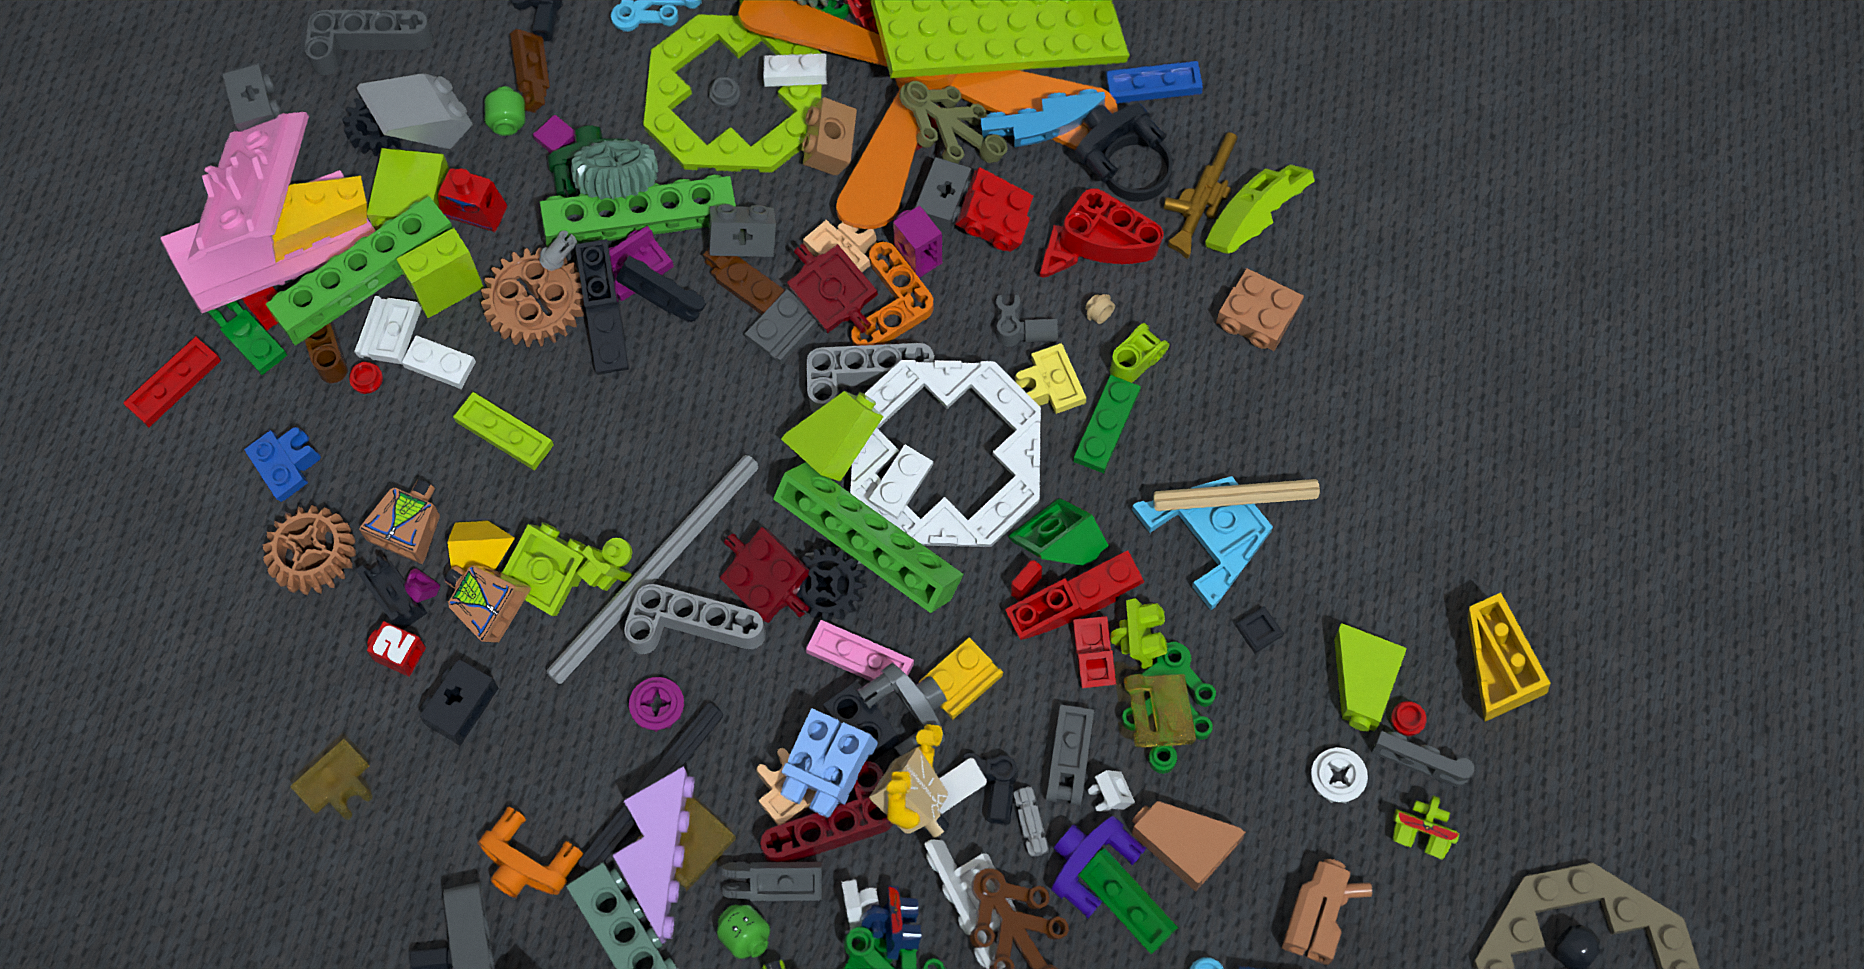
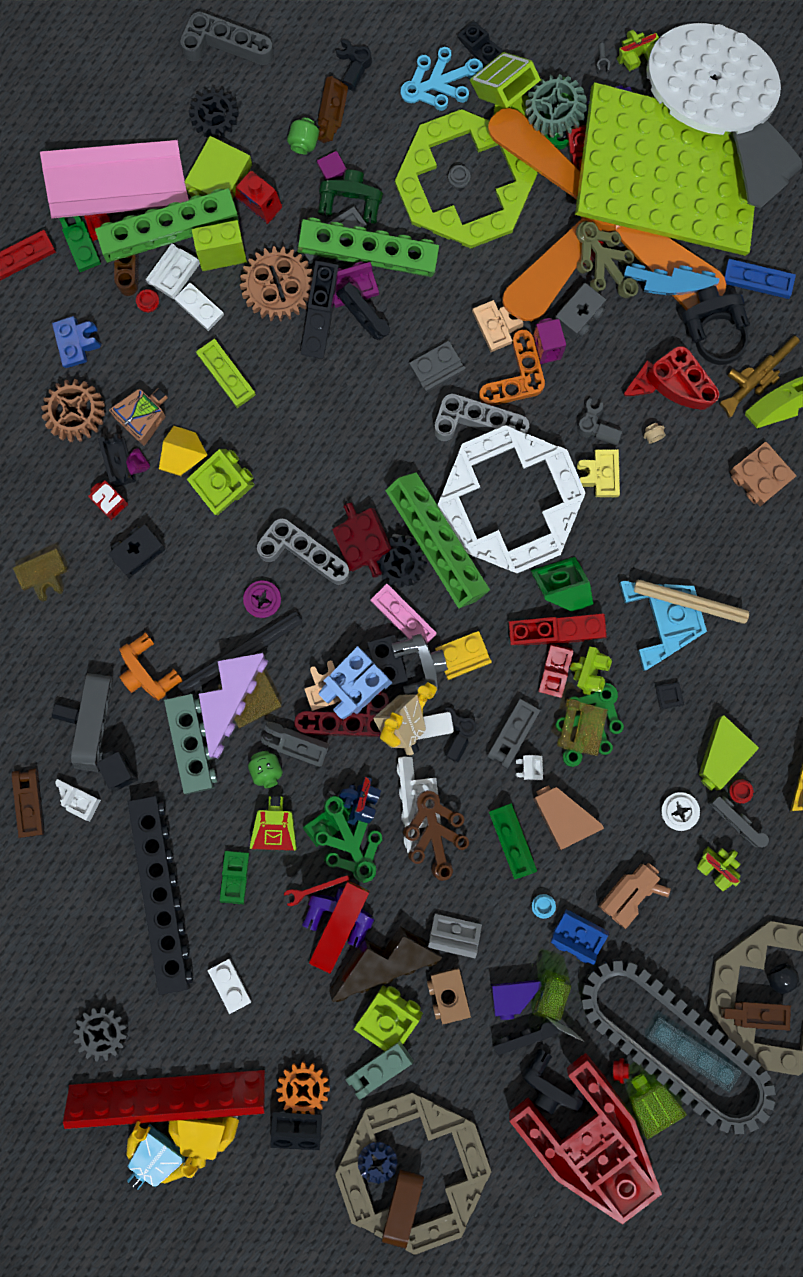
camera: 15 degrees right, 15 degrees up
(249, 184) = (111, 133): bright pink hinge -> none
(251, 97) = (133, 64): dark grey brick -> none
(318, 211) = (148, 168): yellow wedge -> none
(417, 109) = (242, 115): light grey slope -> none
(485, 600) = (175, 489): nougat torso -> none
(553, 256) = (300, 260): light grey pin -> none
(603, 565) = (261, 494): lime hips -> none
(614, 169) = (361, 213): sand green gear -> none
(652, 569) = (292, 505): light grey axle -> none
(741, 231) = (432, 288): dark grey brick -> none
(744, 281) = (422, 323): reddish brown hinge -> none
(795, 70) = (513, 178): white plate -> none
(829, 136) = (528, 231): medium nougat brick -> none
(832, 288) = (479, 353): dark red plate -> none
(835, 434) = (441, 461): lime slope -> none
(857, 903) = (342, 779): white tile -> none
(901, 481) = (473, 509): white plate -> none
(995, 211) = (611, 336): red plate -> none
(1026, 580) = (530, 606): red tile -> none
(1031, 821) = (471, 766): light grey axle -> none
(1080, 849) = (494, 798): dark purple connector -> none
(1107, 424) = (627, 517): green plate -> none
(1140, 350) = (670, 475): lime piece -> none

